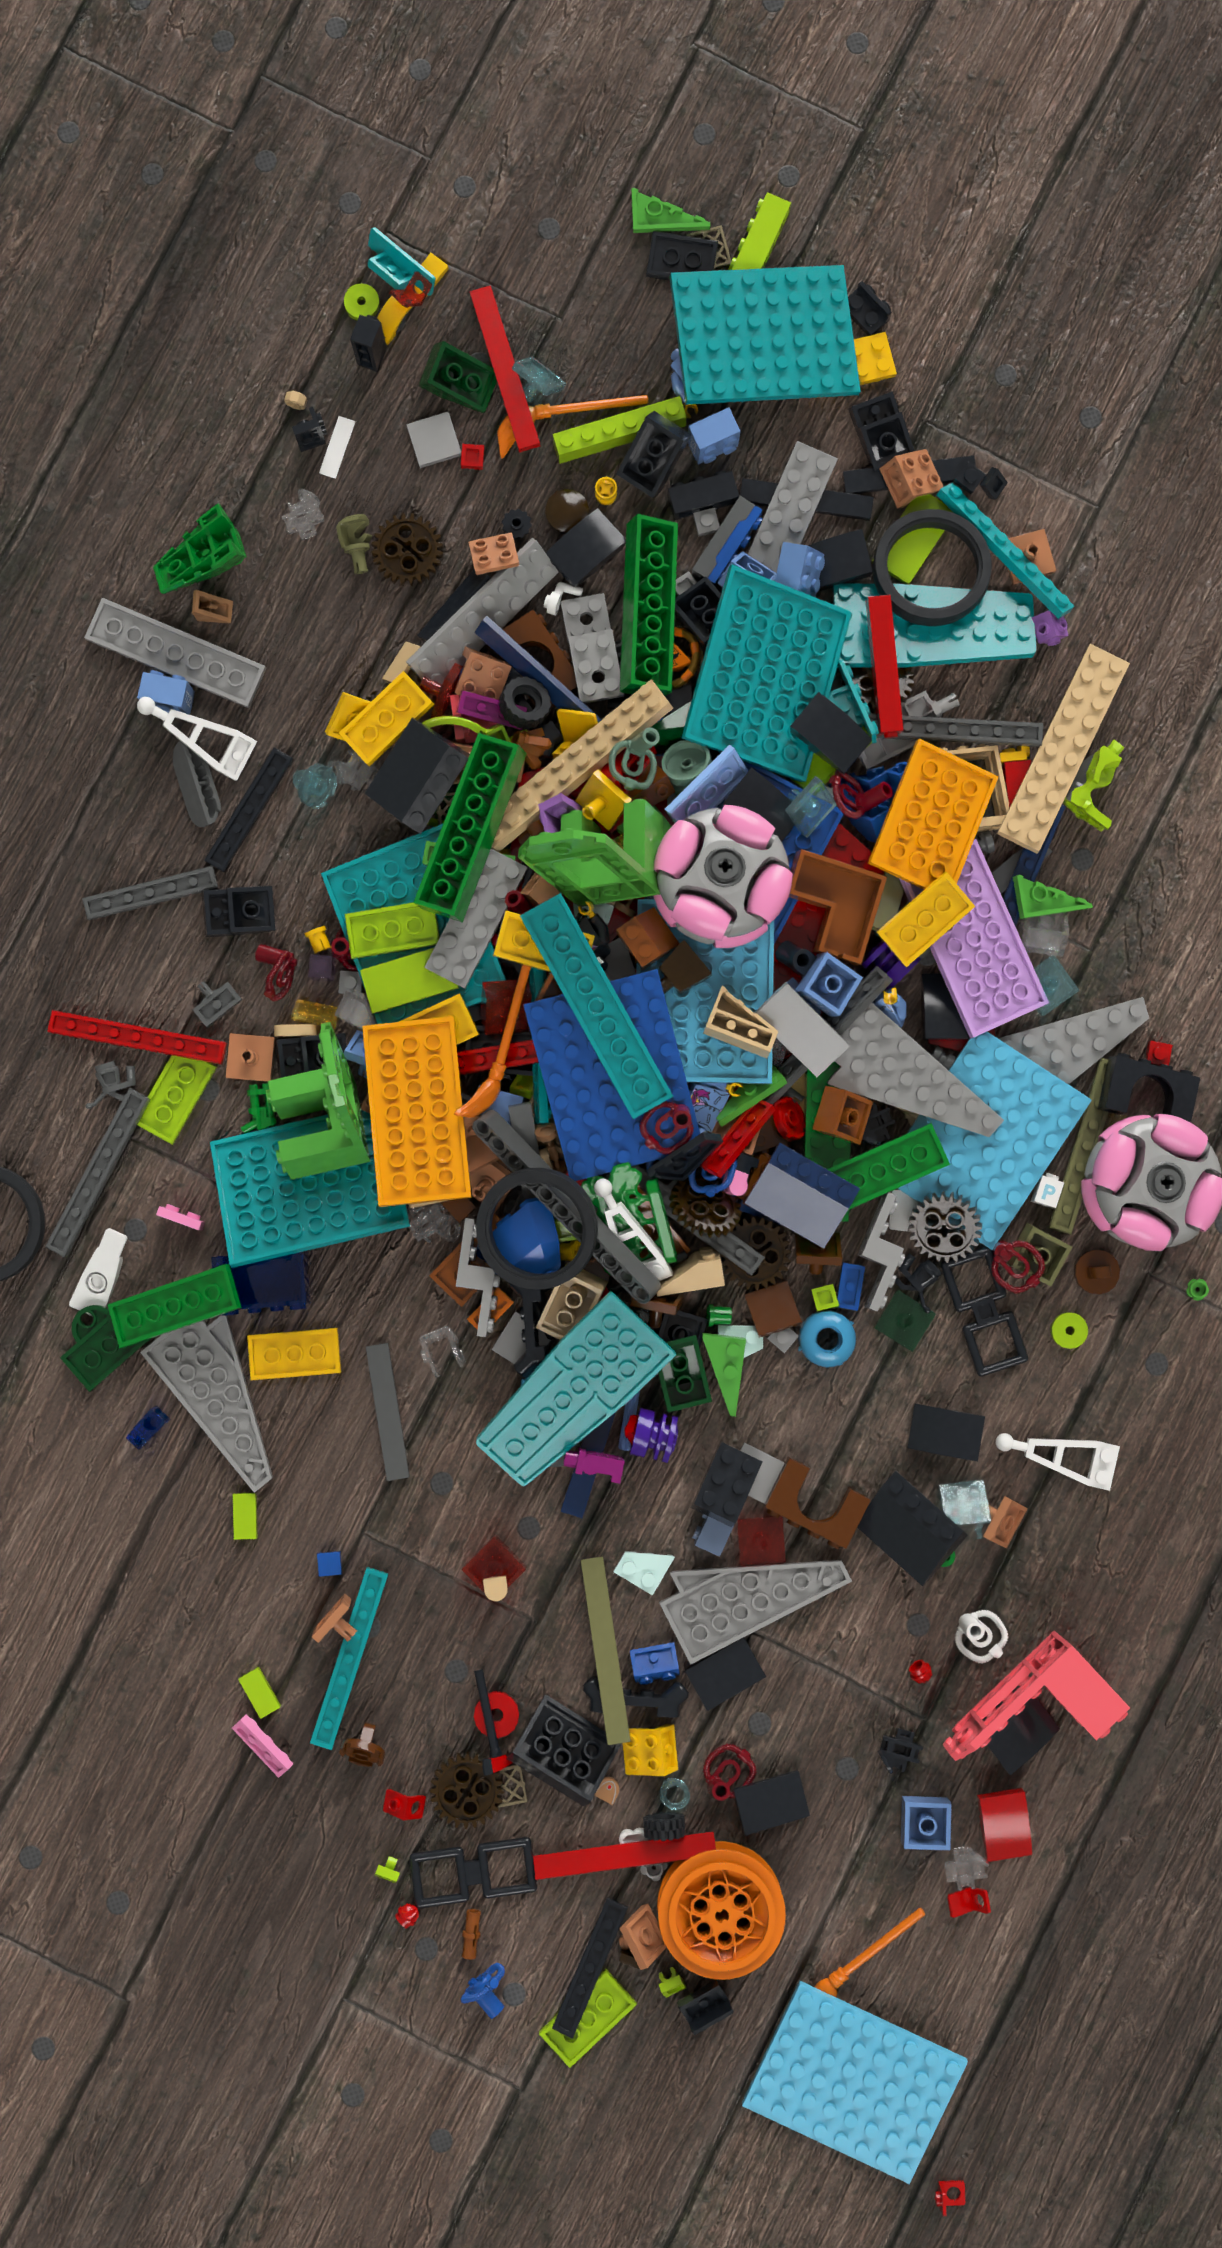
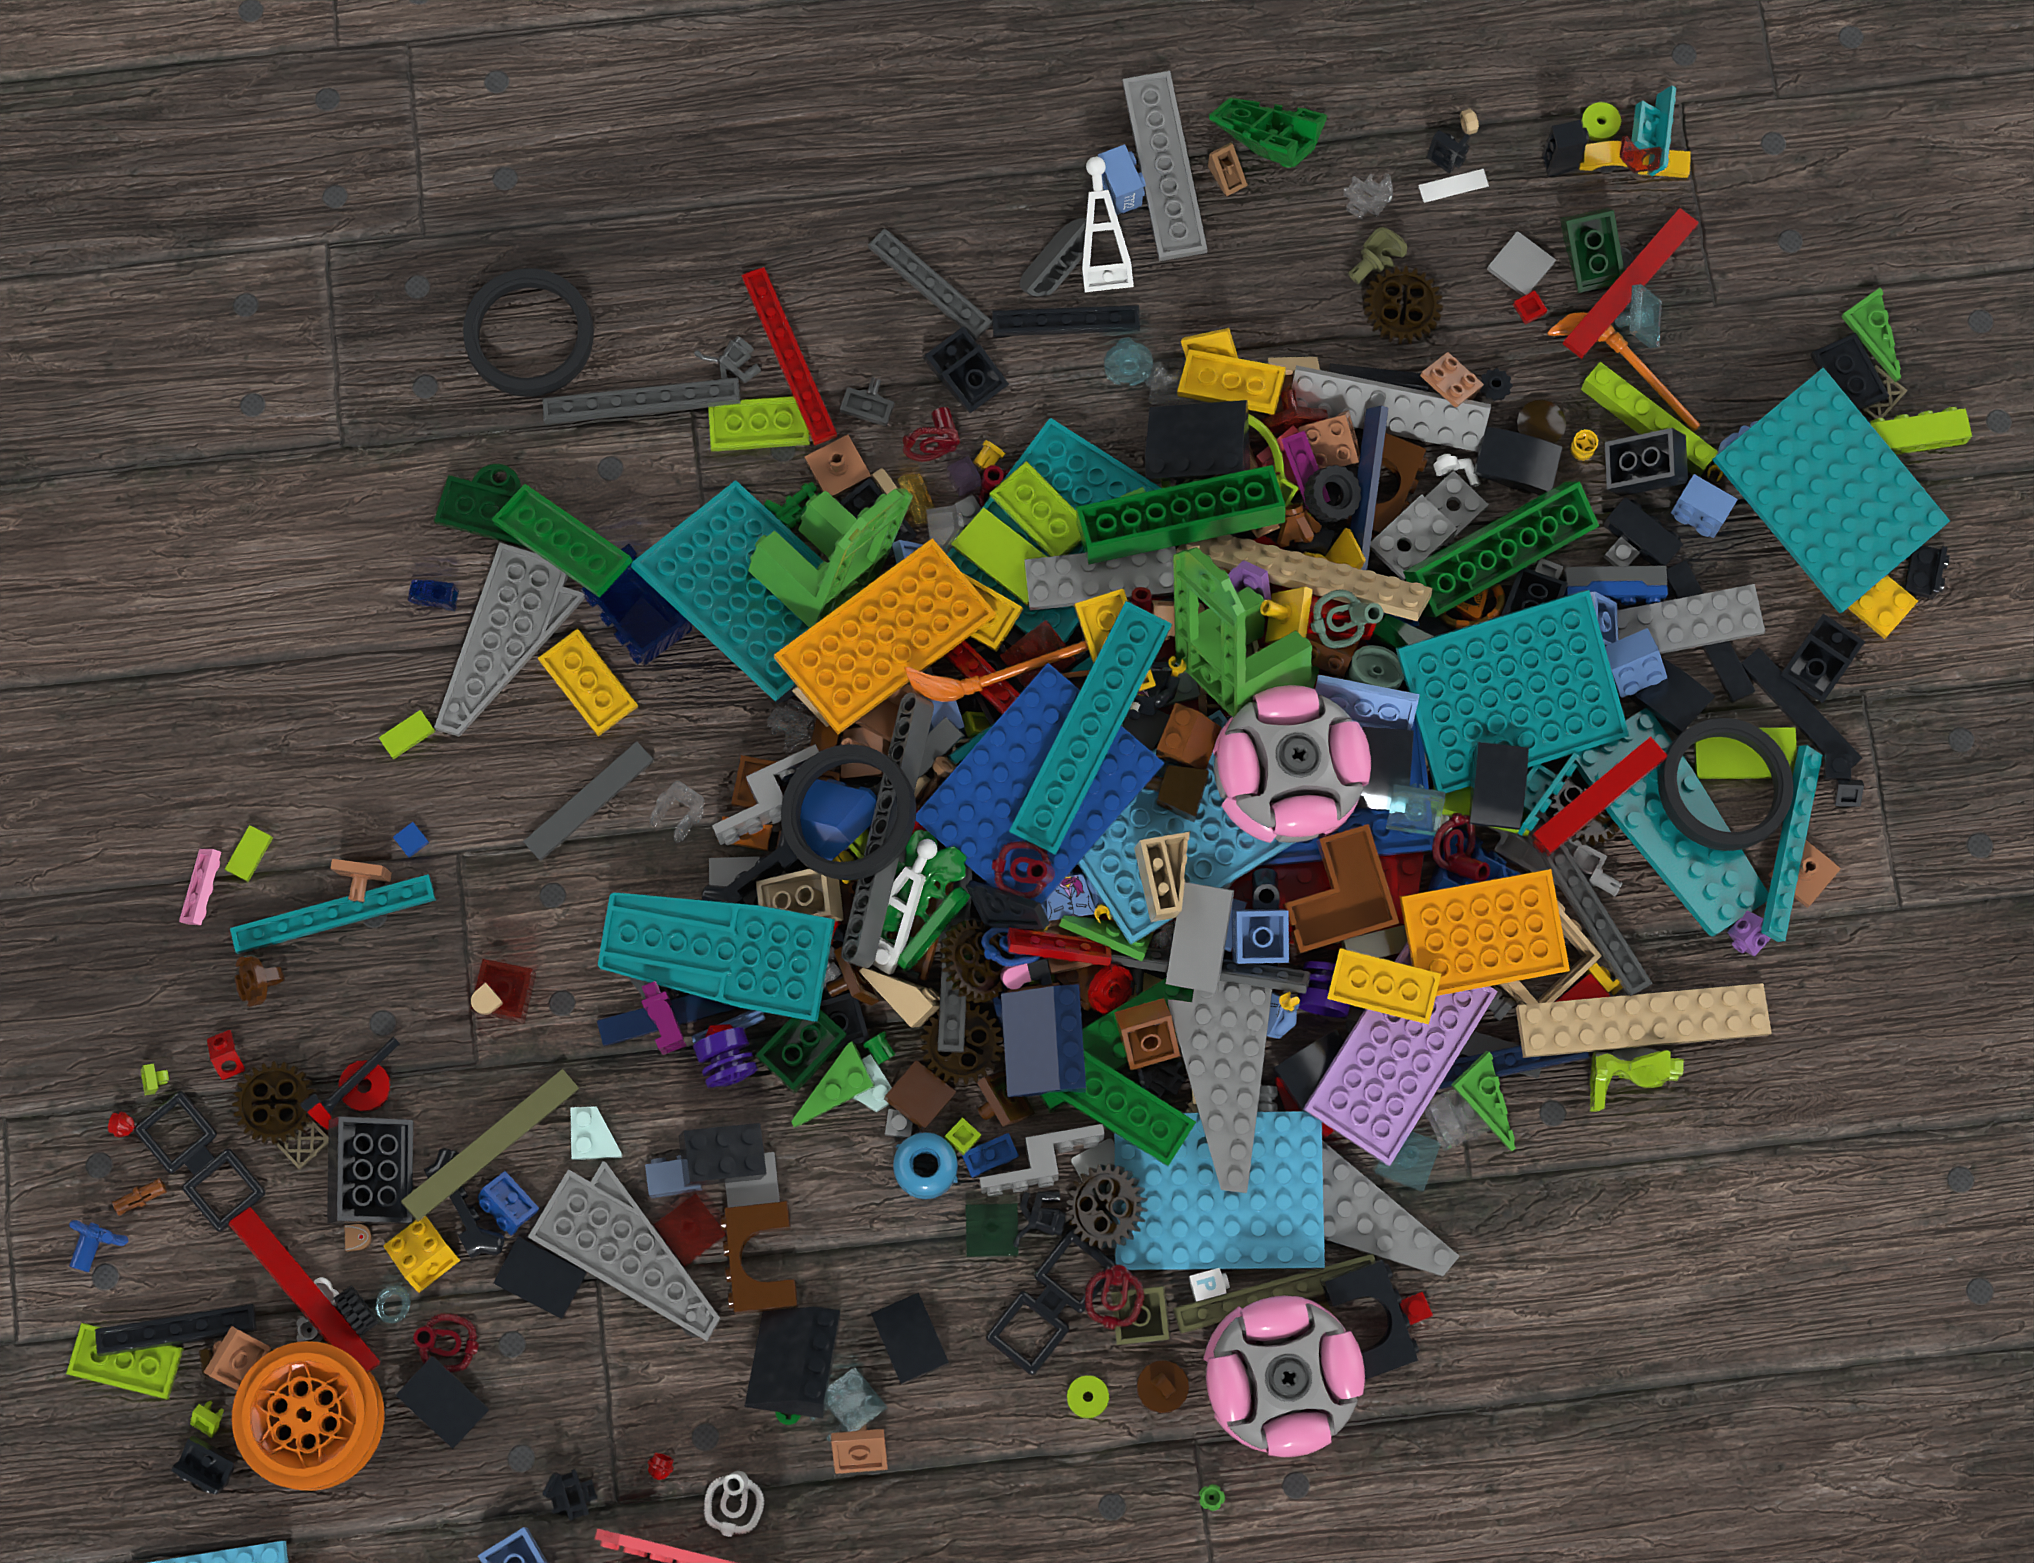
camera: 60 degrees right, 10 degrees down
(100, 1273) = (551, 462): white piece -> none
(172, 1213) = (651, 509): bright pink plate -> none
(910, 477) = (1798, 711): nougat bracket -> none
(1101, 1466) = (977, 1515): white plate -> none

